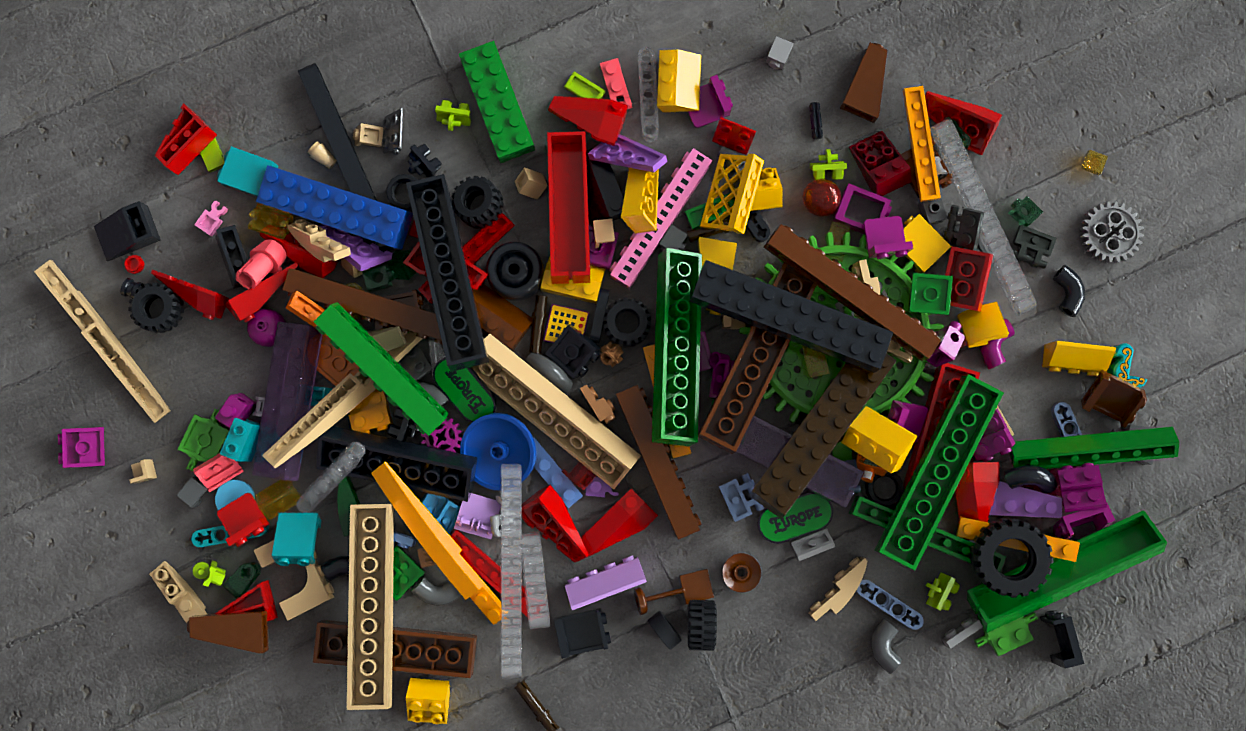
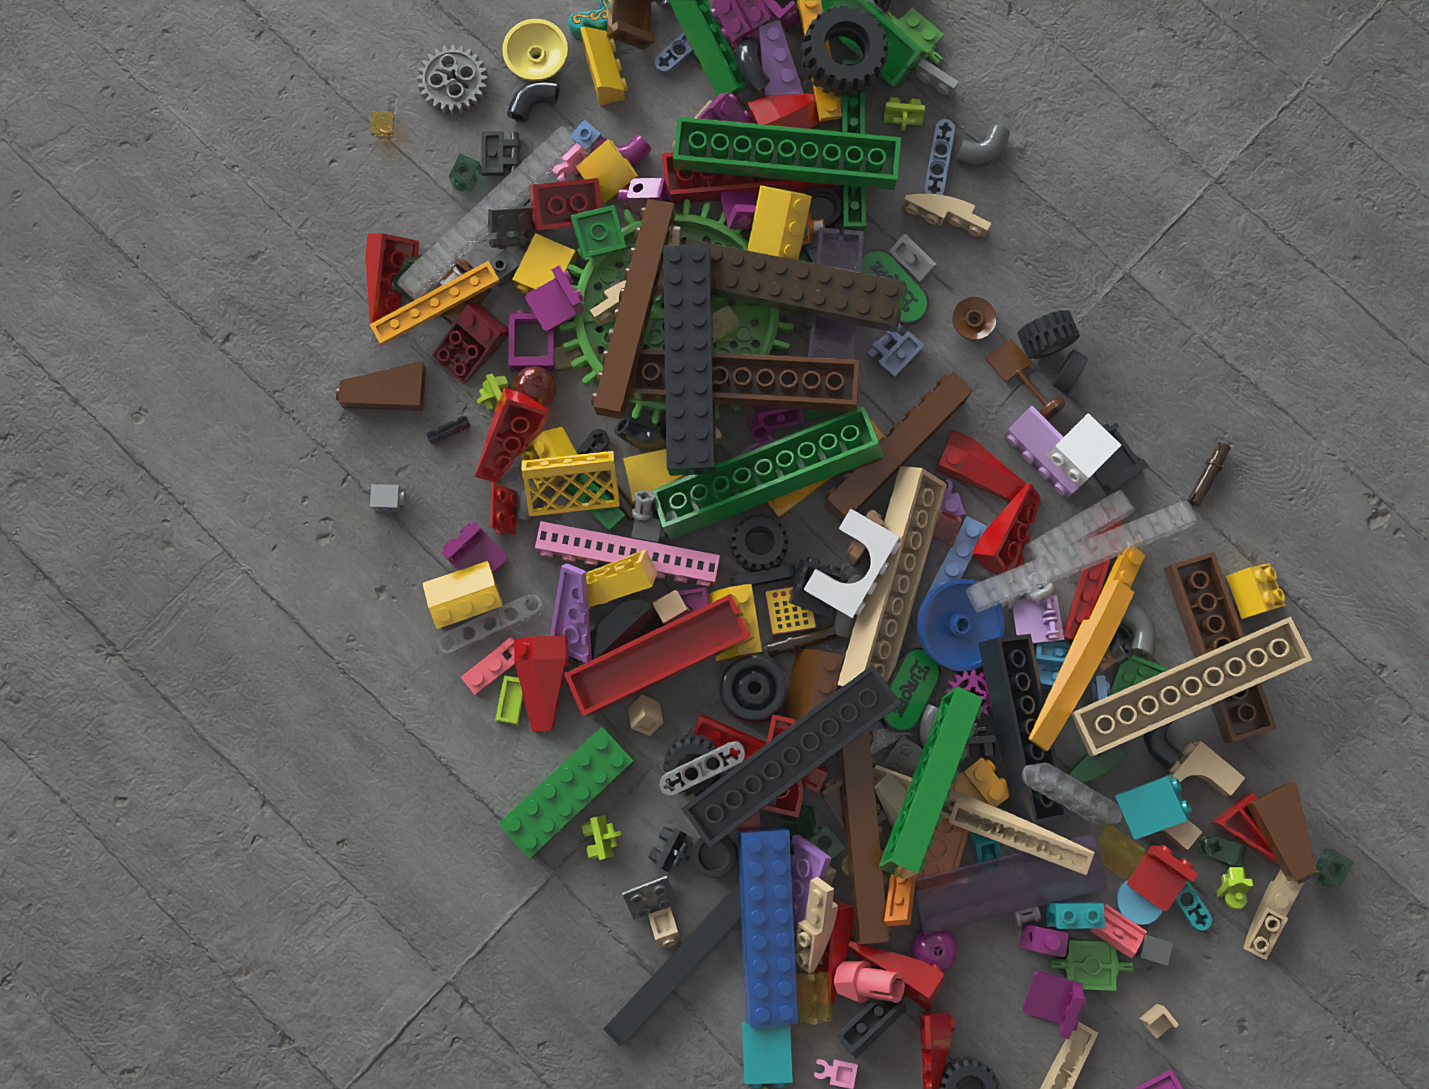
camera: 115 degrees left, 5 degrees down
(189, 401) = (1056, 1001): none -> magenta bracket
(201, 658) = (1342, 867): none -> clear green brick
(322, 155) = (709, 973): tan cone -> none
(428, 569) = (1120, 646): none -> black beam
(472, 203) = (700, 764): none -> light grey beam
(583, 407) = (849, 597): none -> white arch
(593, 608) = (1083, 450): none -> white panel
(611, 354) = (801, 546): medium nougat gear -> none
(692, 242) = (643, 505): none -> light grey bush
(754, 261) = (641, 436): none -> black cylinder
(795, 167) = (511, 430): none -> red wedge
(1004, 300) = (571, 160): none -> bright pink plate
(1020, 319) = (586, 135): none -> medium blue bracket
(1123, 306) = (531, 39): none -> light yellow dish

